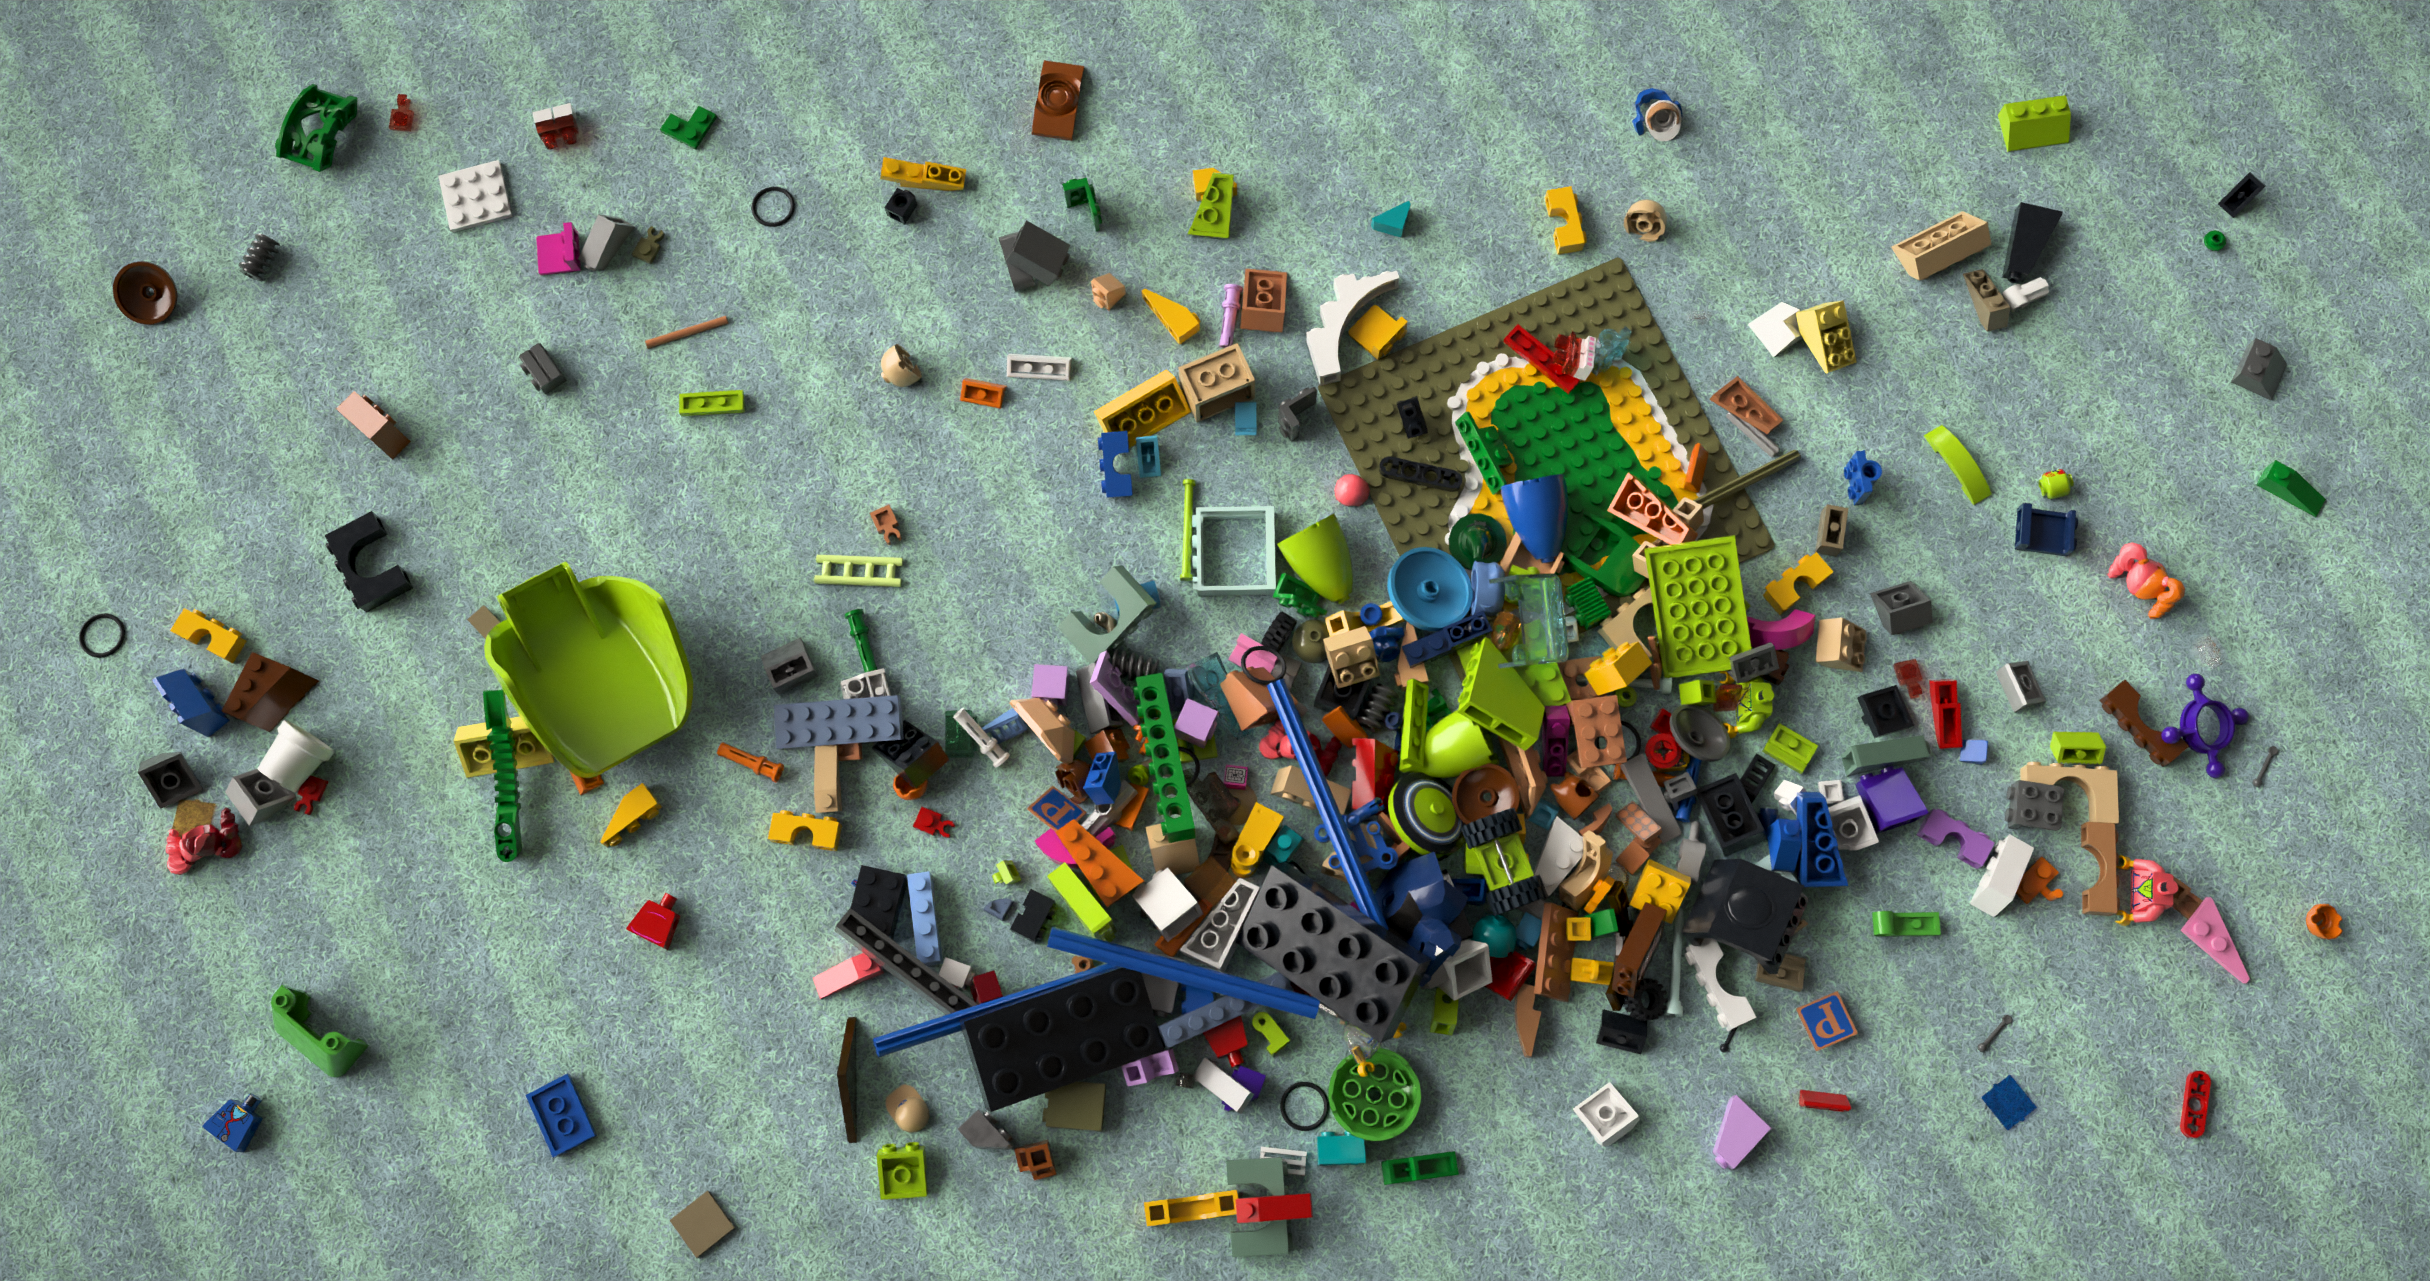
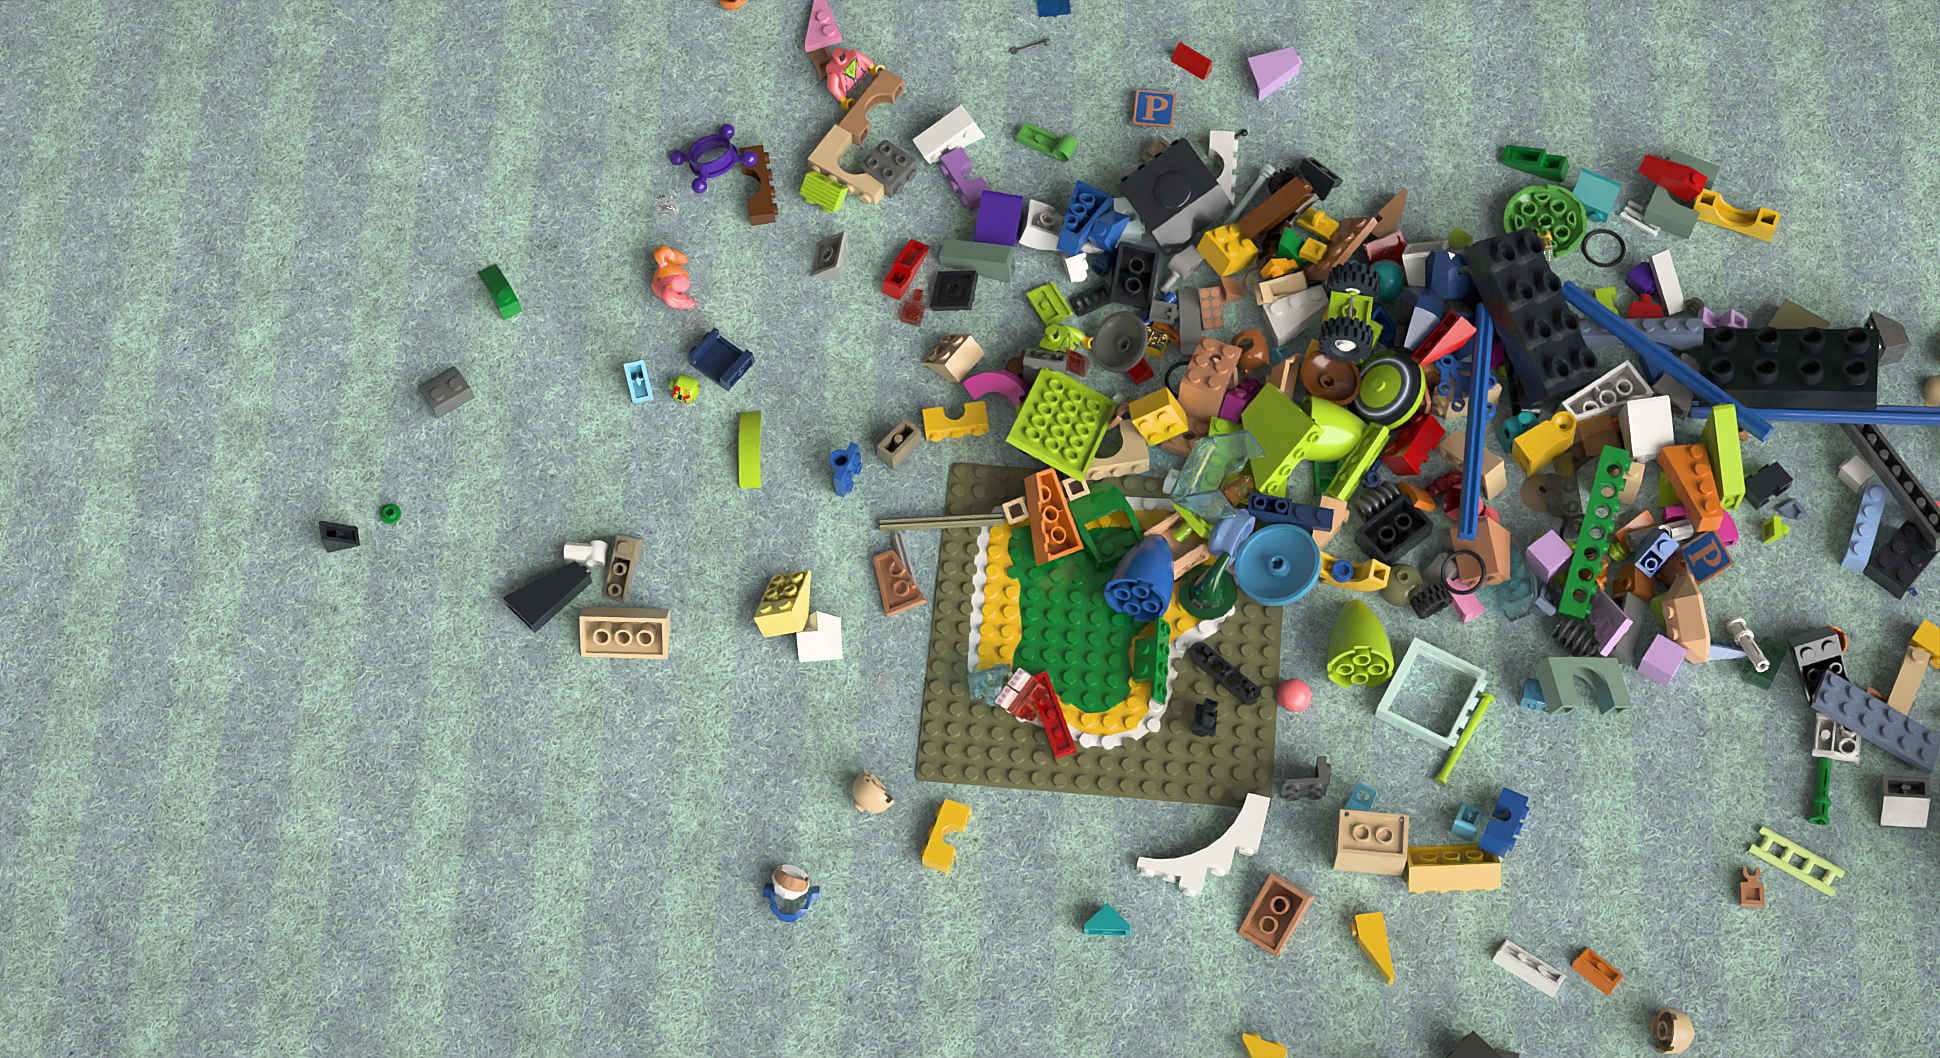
camera: 150 degrees left, 10 degrees down
(930, 821) = (1823, 607): red plate -> none
(985, 988) = (1836, 441): dark red panel -> none
(1036, 1159) = (1847, 309): dark orange brick -> none
(1105, 621) = (1583, 698): dark tan arm -> none
(1107, 291) = (1427, 997): light nougat slope -> none
(1215, 209) = (1277, 1024): lime wing -> none
(1230, 307) = (1312, 923): lavender pin -> none
(1235, 777) = (1531, 510): tile -> none
(1298, 595) = (1401, 617): green bracket -> none
(1351, 657) = (1383, 535): tan slope -> none
(1365, 812) = (1454, 421): blue pin -> none
(1378, 331) = (1185, 823): yellow bracket -> none
(1385, 642) = (1341, 545): blue piece -> none
(1399, 875) = (1445, 338): none -> slope
(1587, 603) = (1146, 489): green brick -> none
(1600, 819) = (1250, 322): nougat slope -> none
(1607, 1115) = (1367, 127): white slope -> none
(1669, 744) = (1157, 334): red gear -> none
(1696, 469) = (979, 552): orange slope -> none
(1697, 693) = (1099, 376): lime brick -> none
(1832, 791) = (1037, 260): white tile -> none
(1902, 607) = (882, 361): dark grey slope -> none
(1974, 751) = (903, 232): slope -> none
(2035, 123) = (458, 695): lime slope -> none
(2035, 881) = (916, 126): orange plate -> none
(2100, 468) = (638, 380): none -> medium azure slope
(2272, 751) = (701, 109): dark grey hinge -> none

